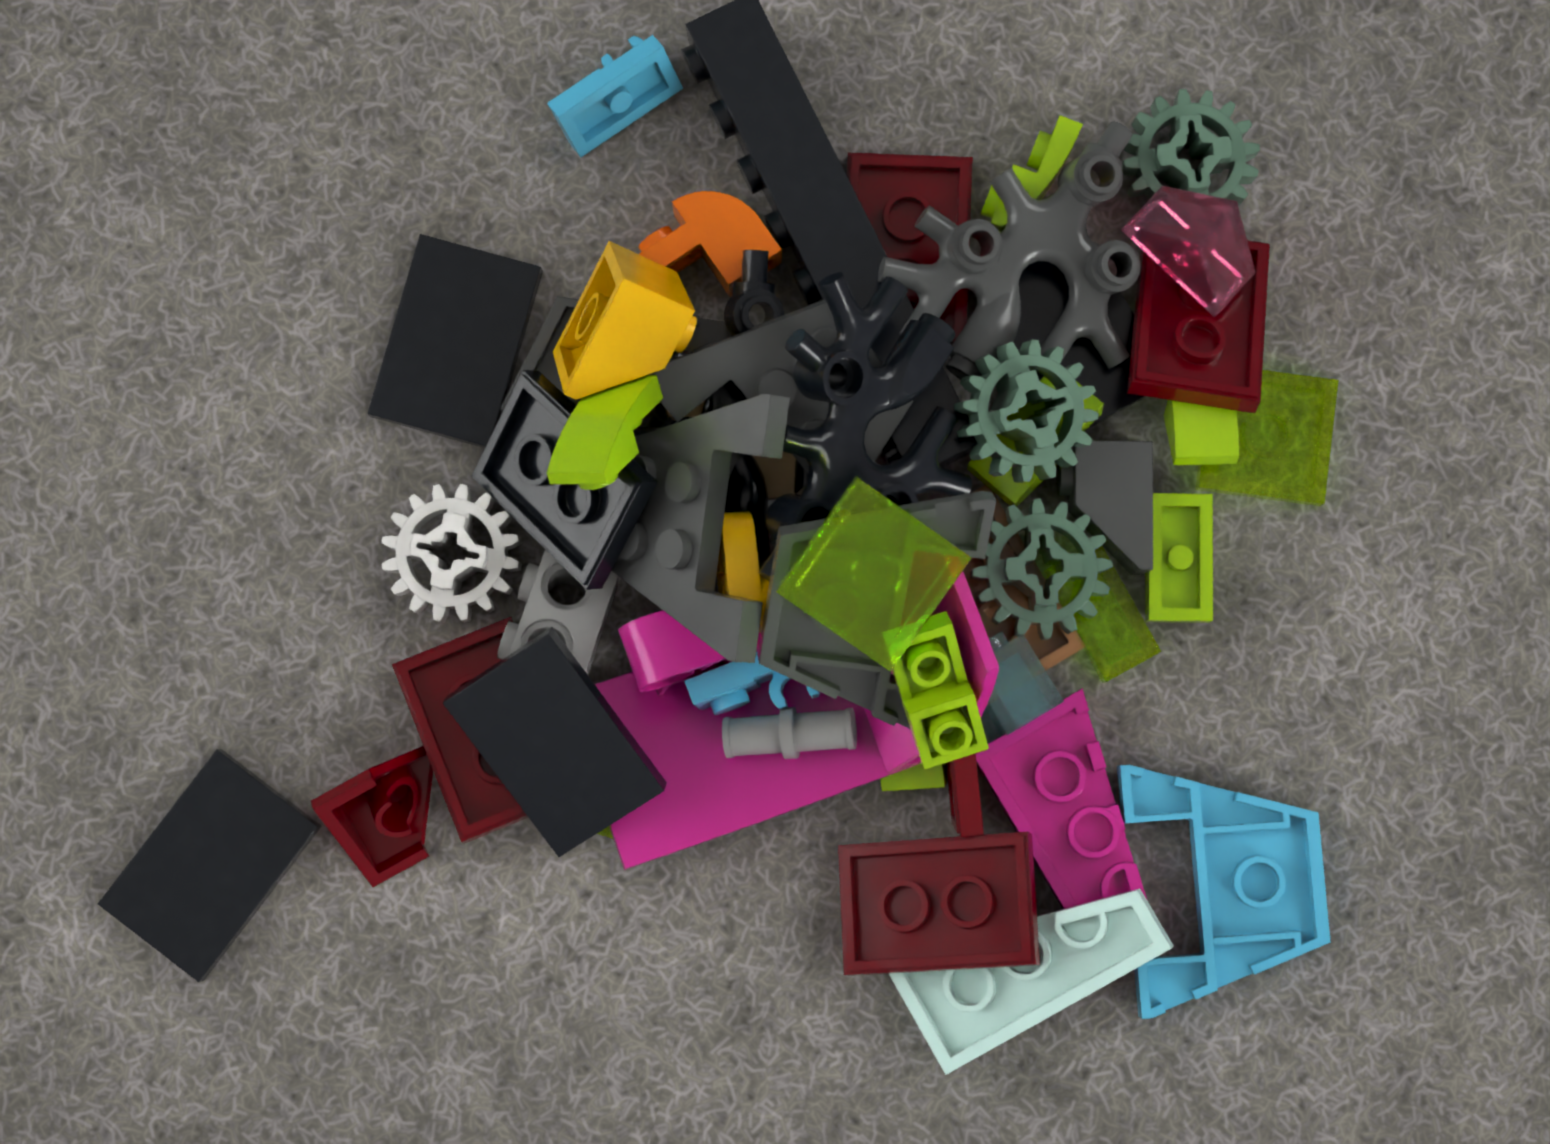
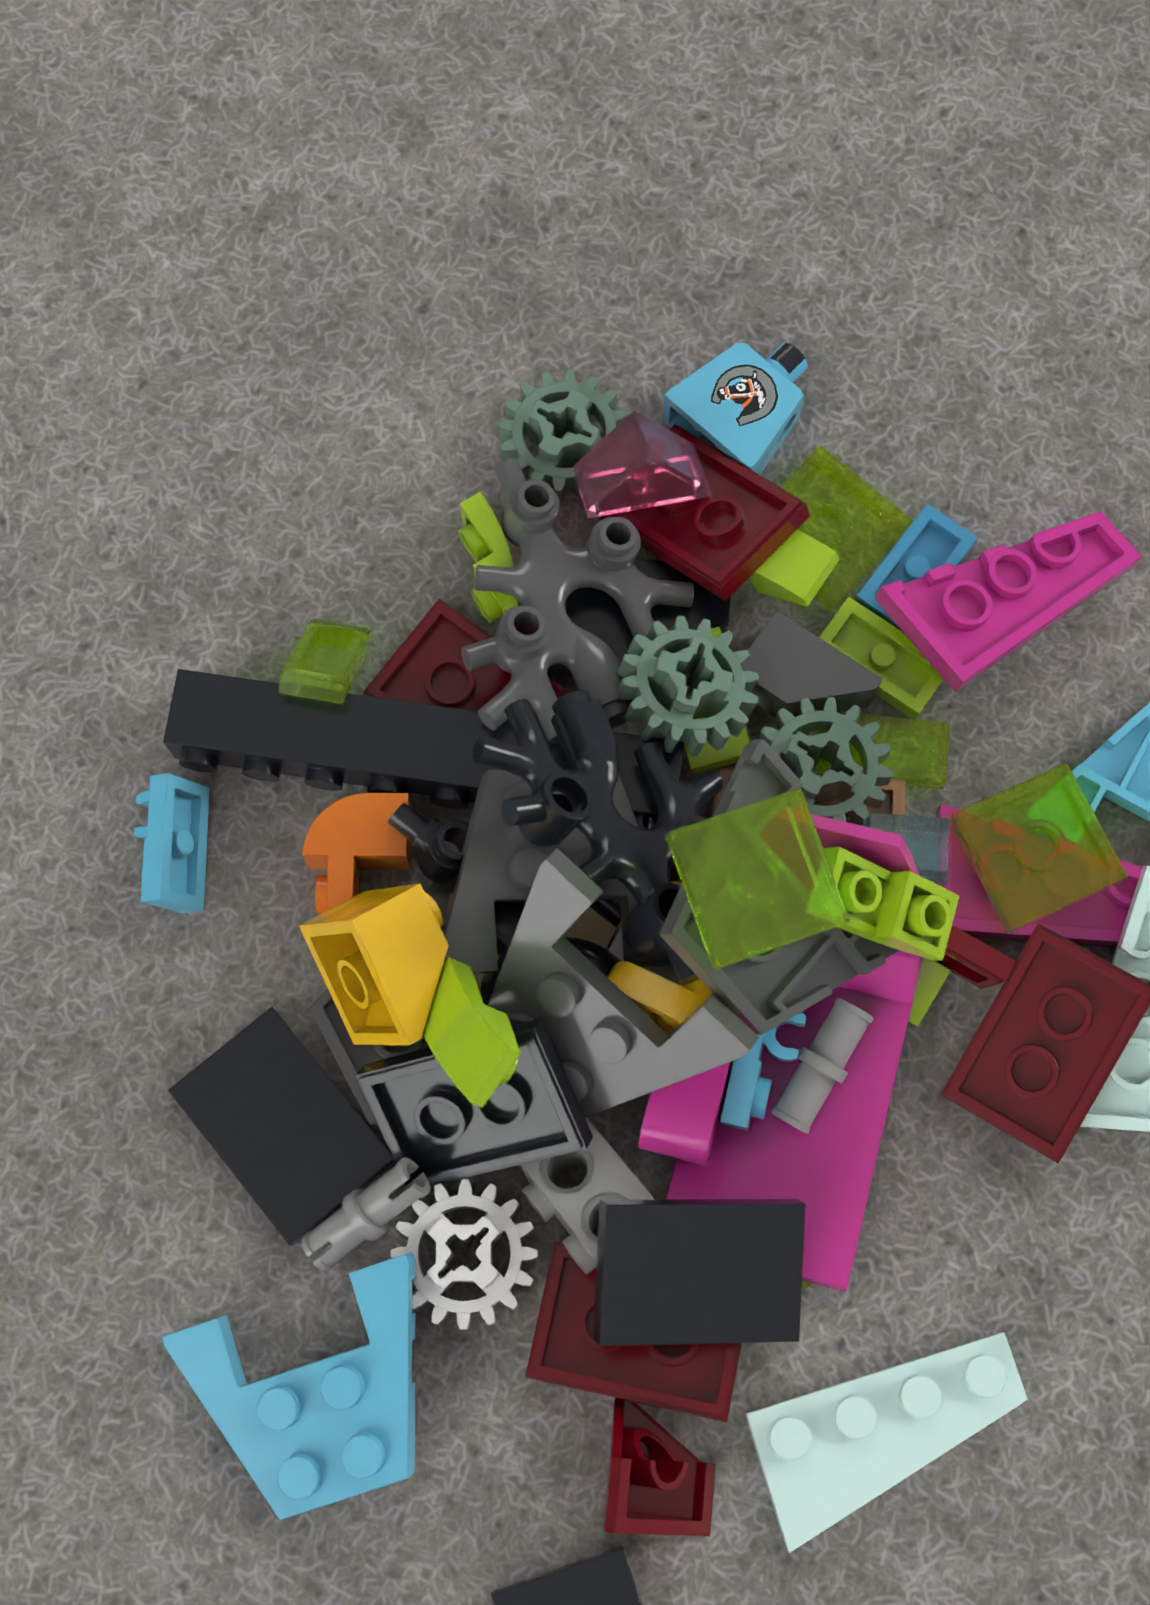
camera: 55 degrees left, 10 degrees down
(253, 536) = (326, 1424): none -> medium azure wing
(428, 455) = (365, 1214): none -> light grey pin
(531, 959) = (867, 1434): none -> light aqua wing
(846, 104) = (325, 661): none -> clear neon green tile
(1098, 792) = (1037, 848): none -> clear neon green tile
(1279, 535) = (926, 544): none -> dark azure plate
(1290, 619) = (994, 604): none -> dark pink wing
(1325, 288) = (741, 402): none -> medium azure torso

